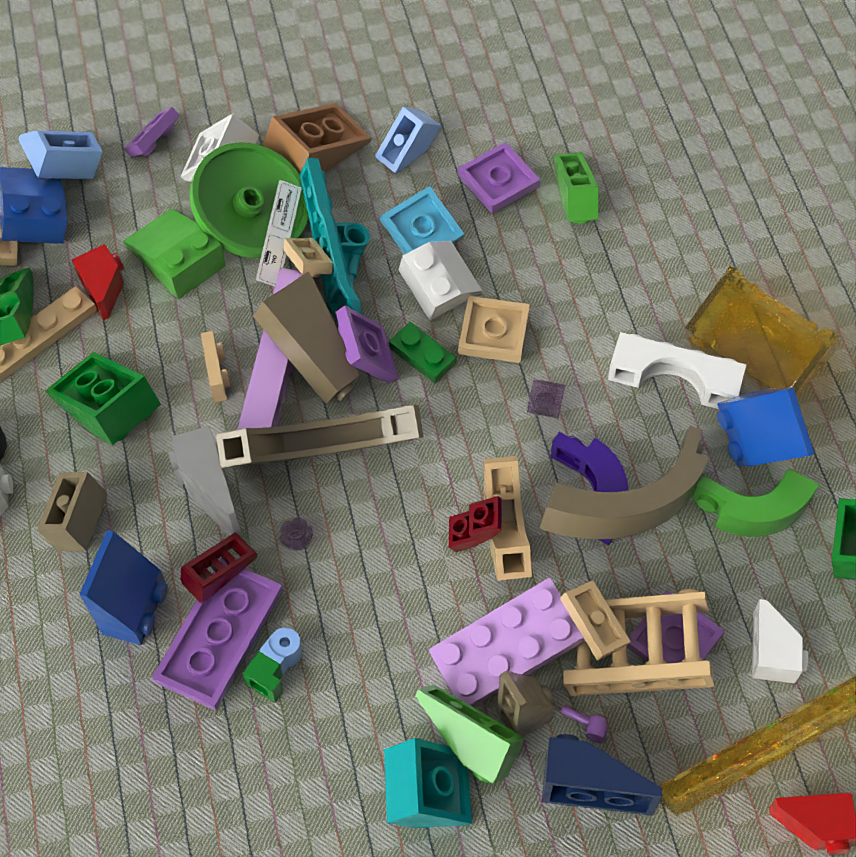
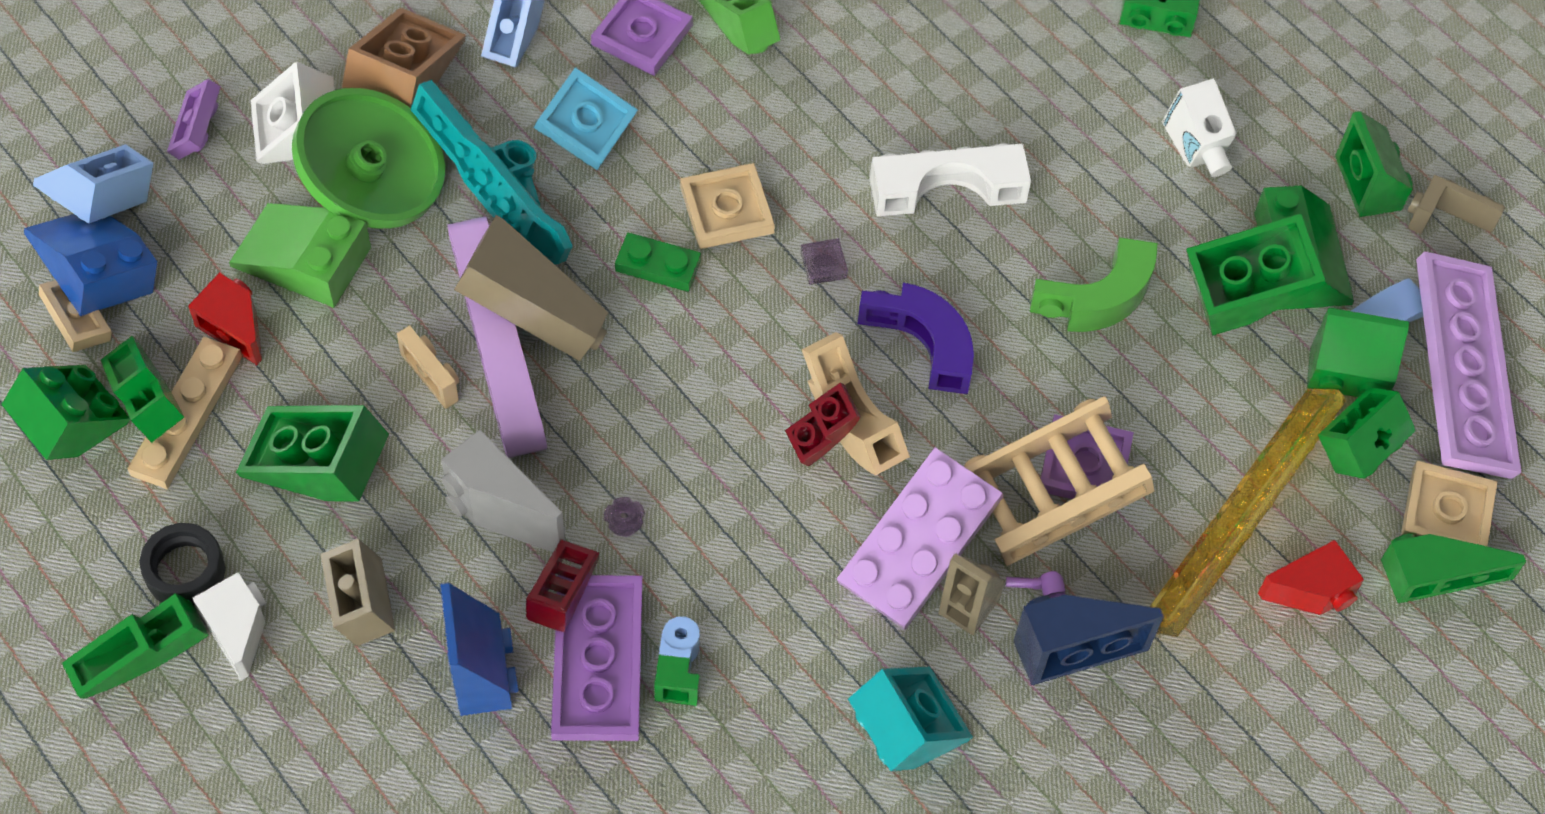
camera: 30 degrees left, 0 degrees up
(279, 227) = (421, 186): white sticker -> none
(308, 256) = (474, 199): tan plate -> none
(318, 438) = (607, 394): dark tan arch -> none
(366, 344) = (597, 274): medium lavender plate -> none
(438, 277) = (635, 171): white slope -> none
(473, 736) = (938, 646): slope -> none
(595, 620) = (1005, 471): tan plate -> none
(630, 512) = (978, 350): dark tan arch -> none
(761, 333) = (1022, 104): clear yellow windscreen -> none
(764, 427) = (1079, 201): blue slope -> none
(776, 646) = (1190, 427): white slope -> none

